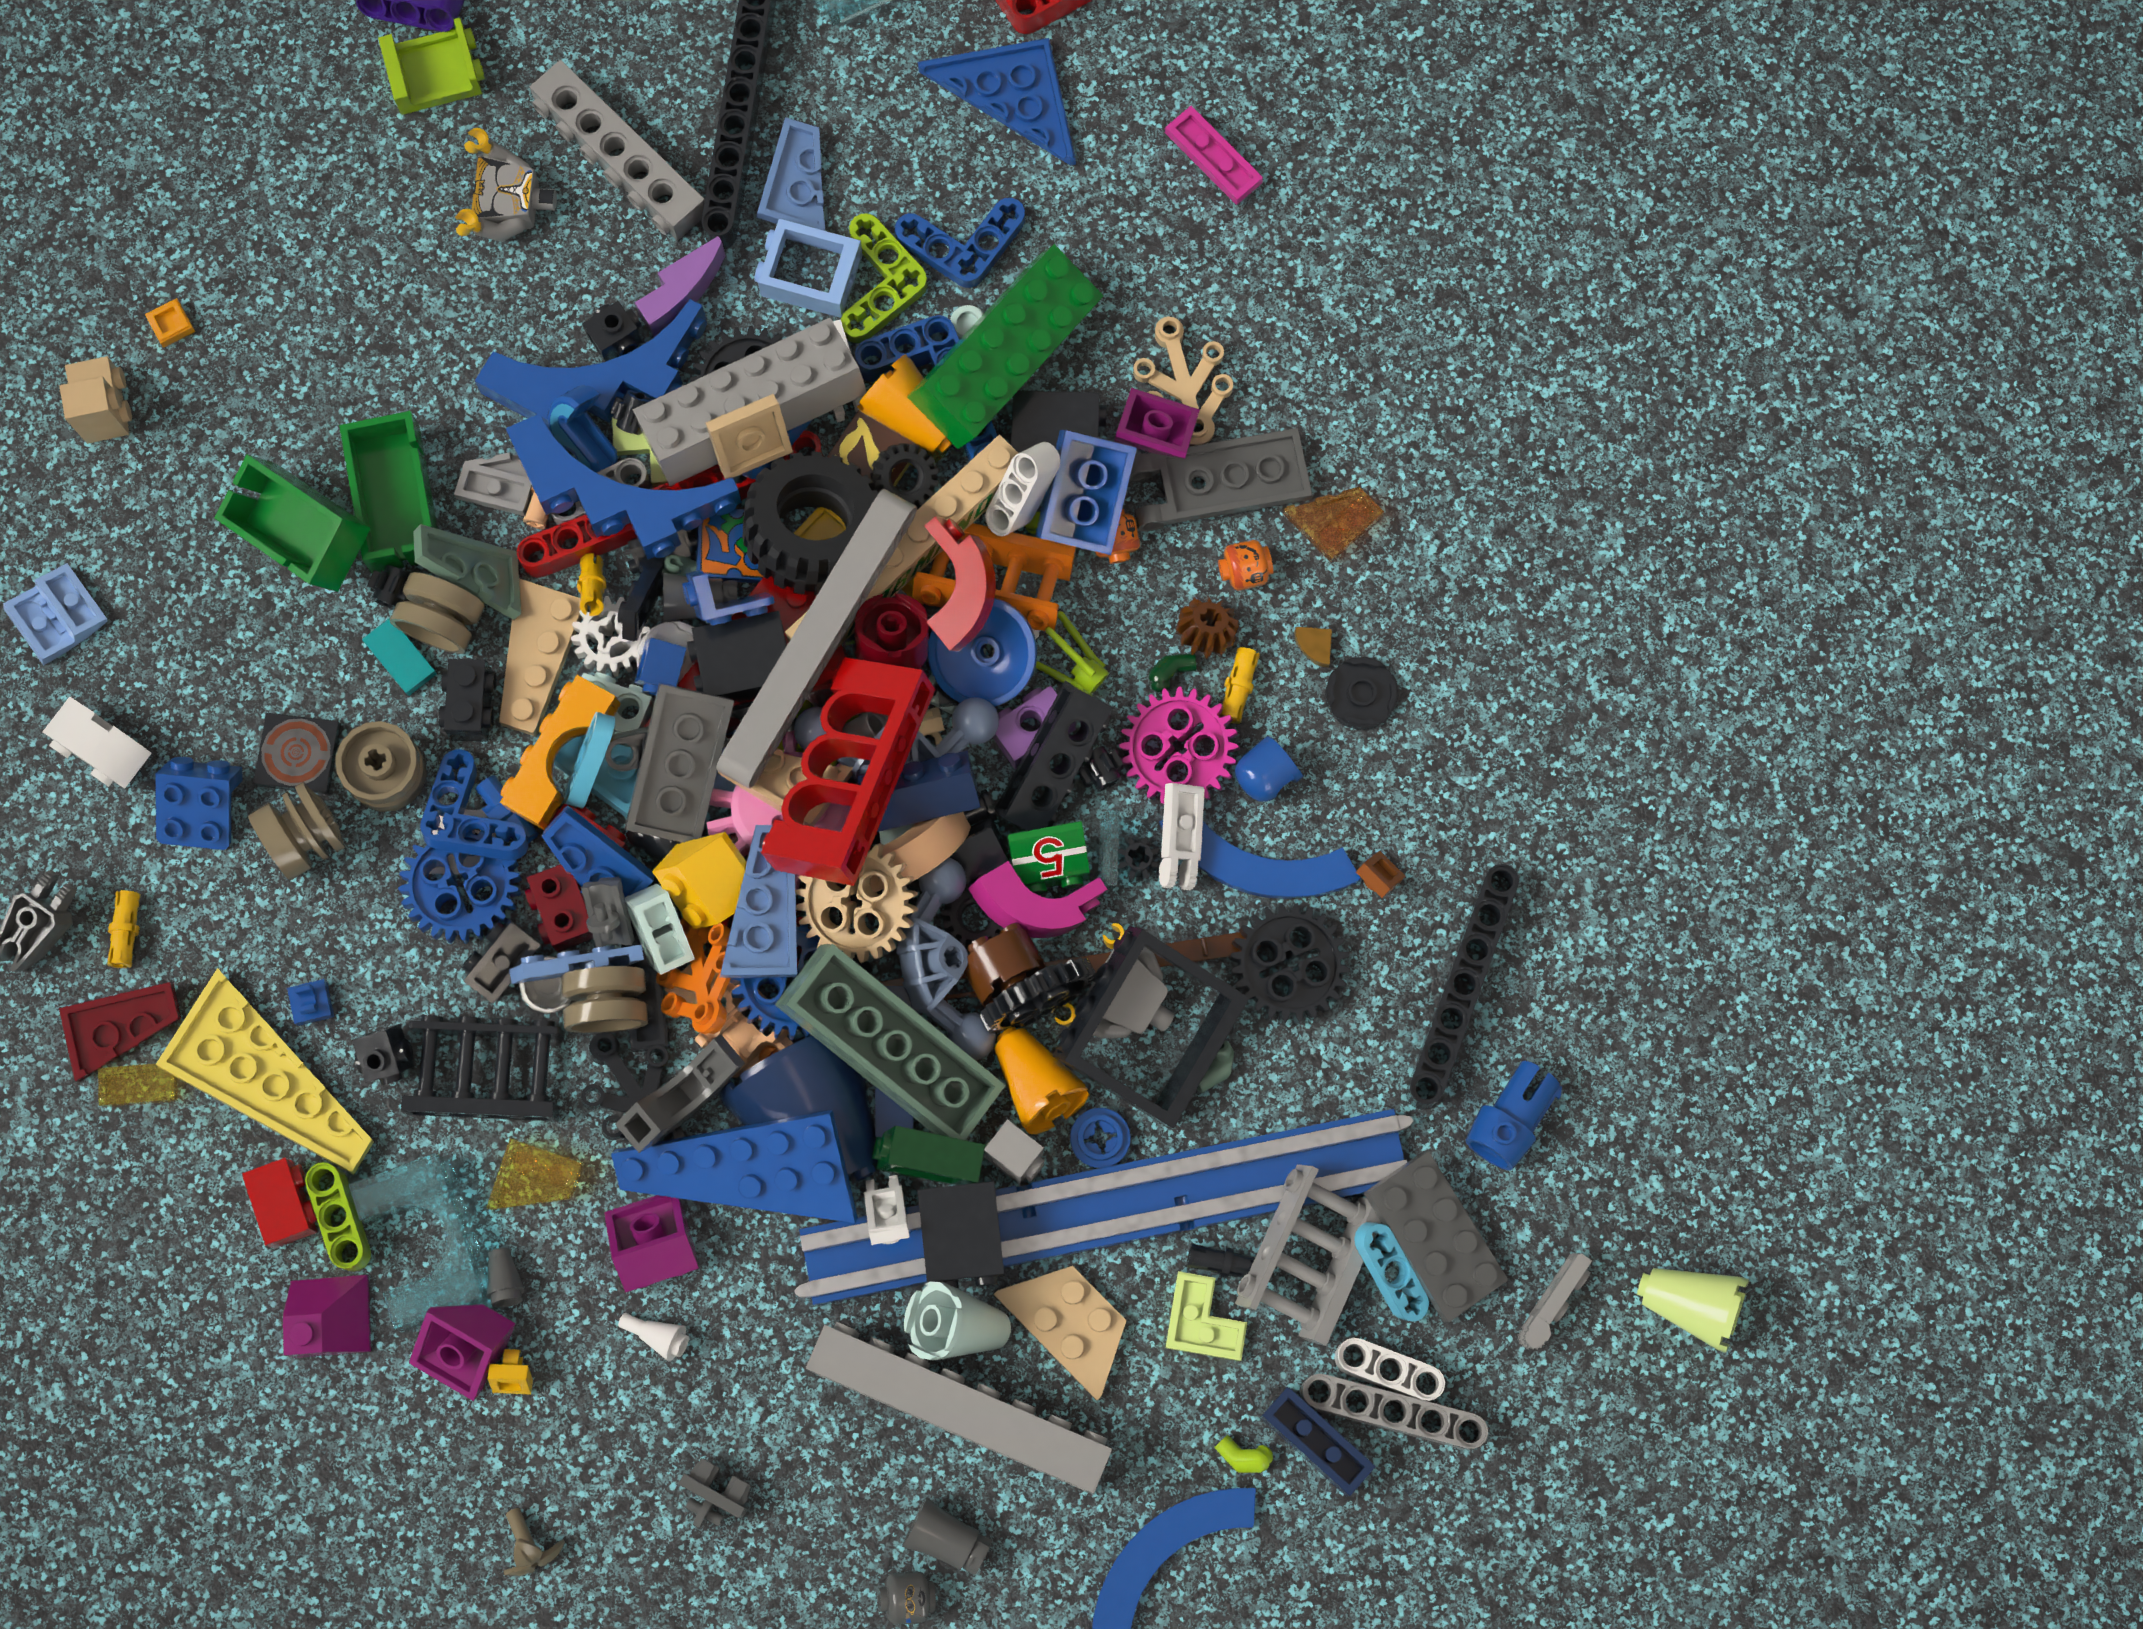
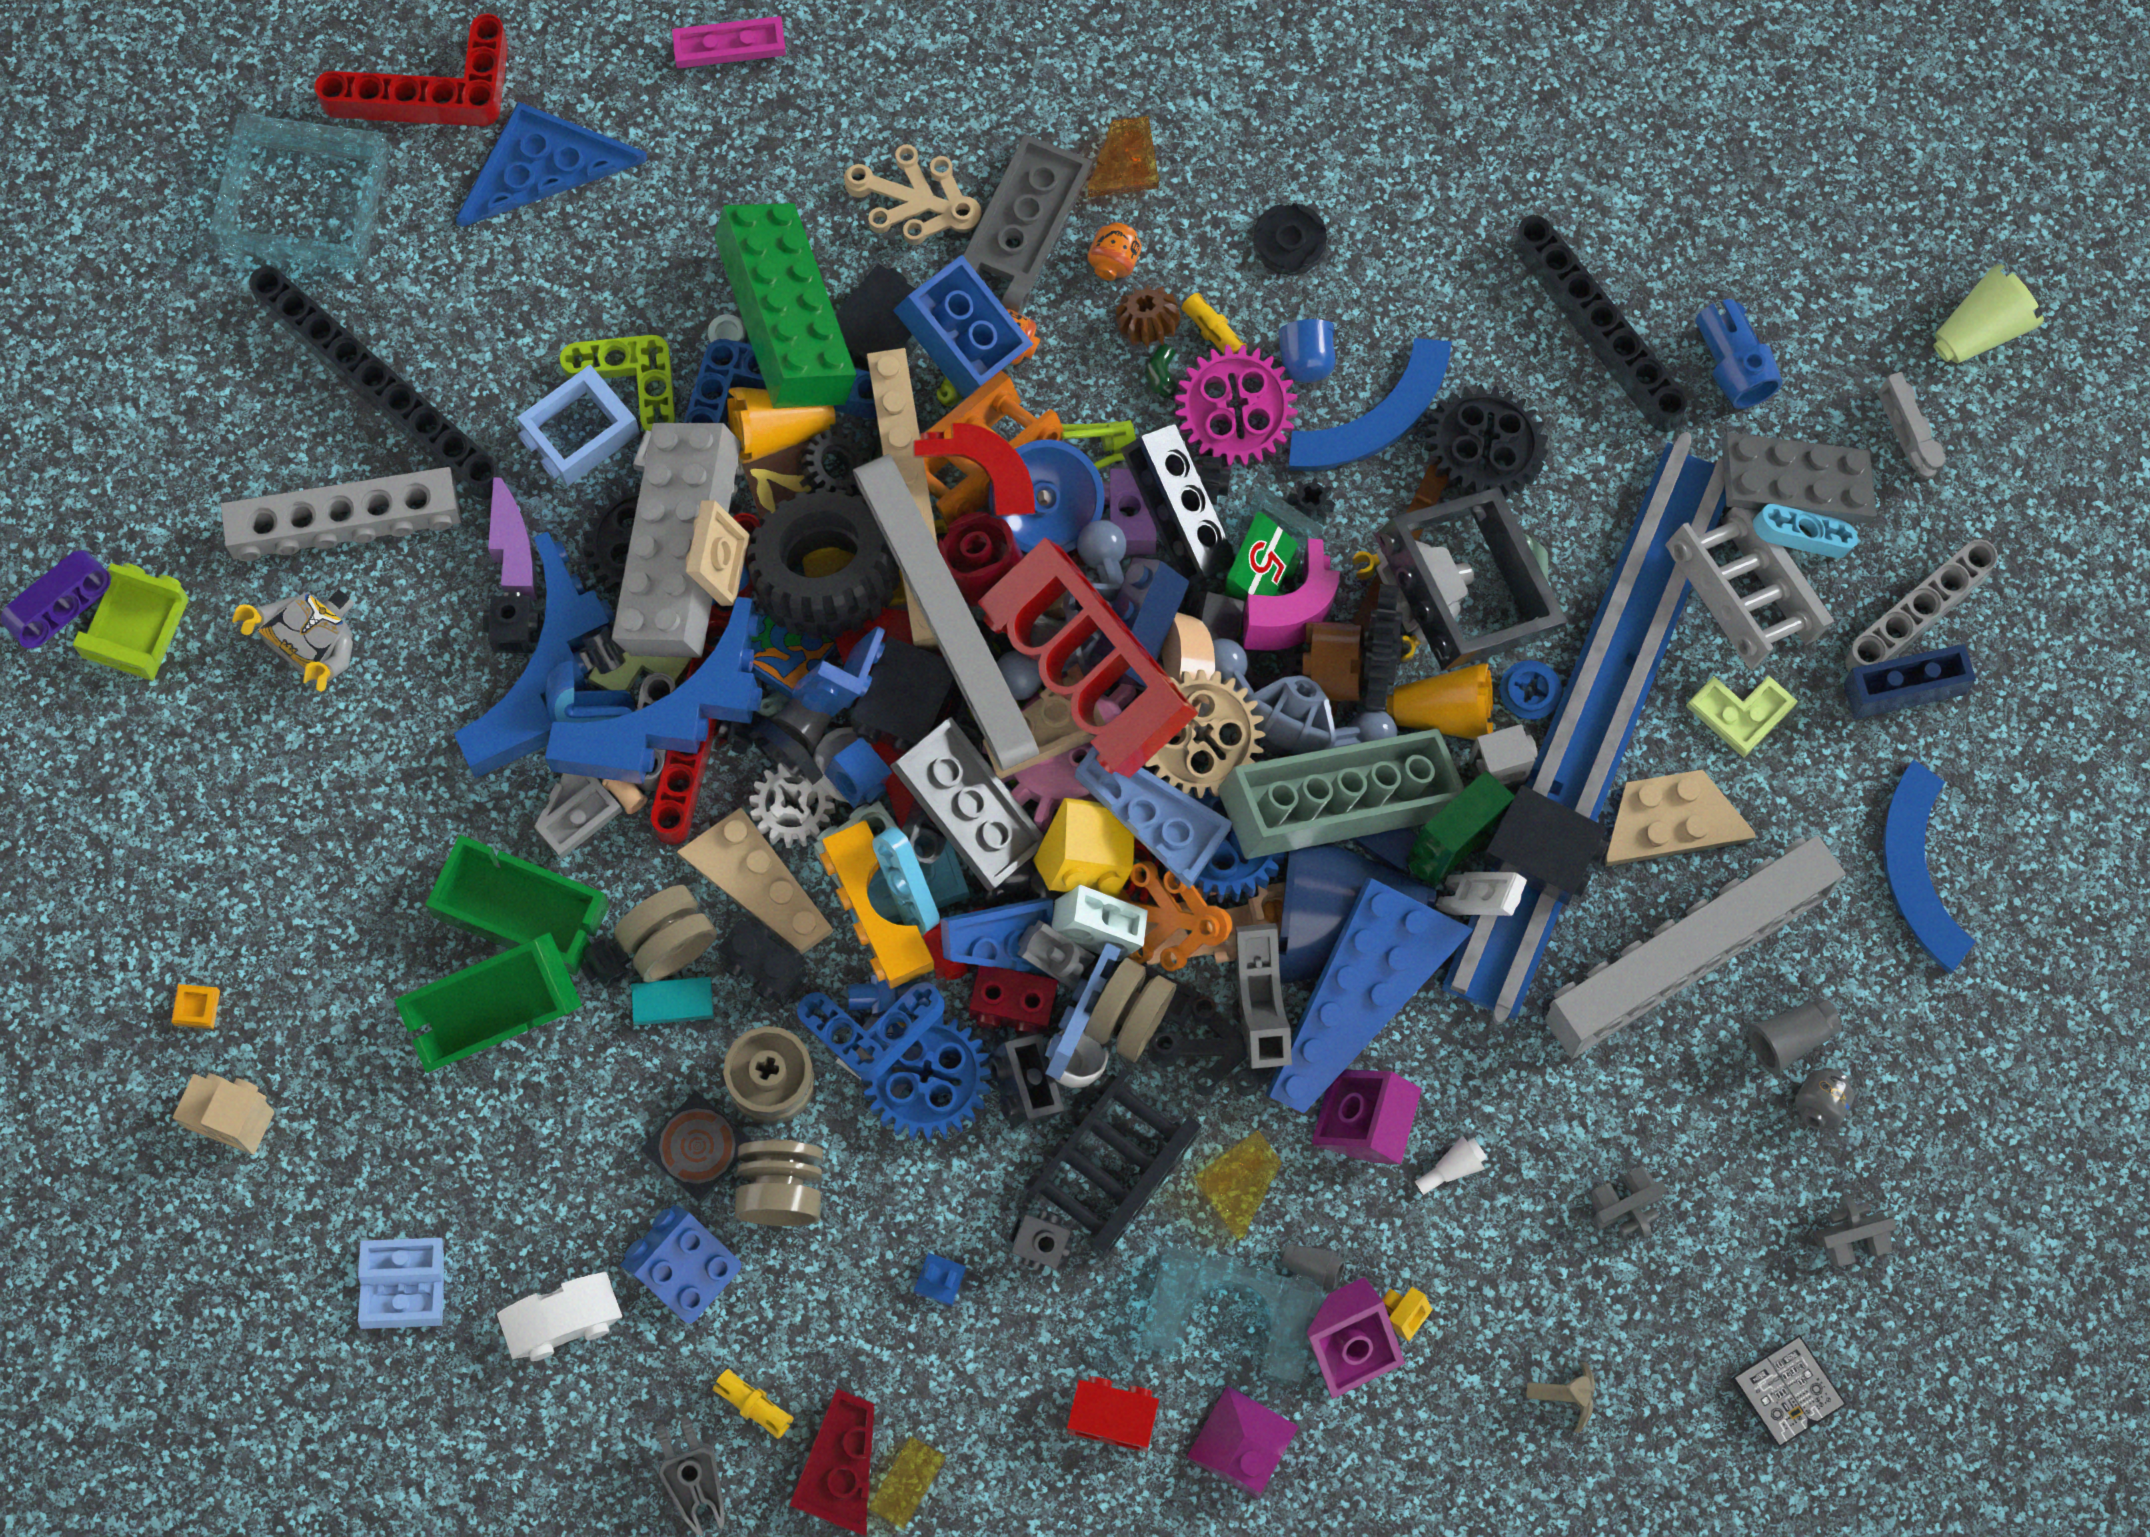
camera: 55 degrees left, 5 degrees down
(246, 1065) = (968, 1367): light yellow wing -> none
(324, 1205) = (1180, 1368): lime beam -> none
(472, 565) = (644, 873): sand green wing -> none
(591, 584) = (735, 787): yellow pin -> none
(794, 178) = (482, 386): medium blue wing -> none
(953, 1323) = (1616, 903): light aqua cone -> none
(961, 254) = (658, 299): blue beam -> none
(1022, 488) = (922, 355): white beam -> none
(1156, 424) = (942, 236): magenta slope -> none
(1181, 834) = (1319, 451): white hinge -> none
(1219, 1261) = (1705, 660): black pin -> none
(1244, 1460) = (1884, 753): lime arm -> none
(1314, 644) = (1221, 246): pearl gold tile -> none
(1380, 874) = (1459, 323): dark orange plate -> none
(1408, 1369) = (1873, 602): white beam -> none

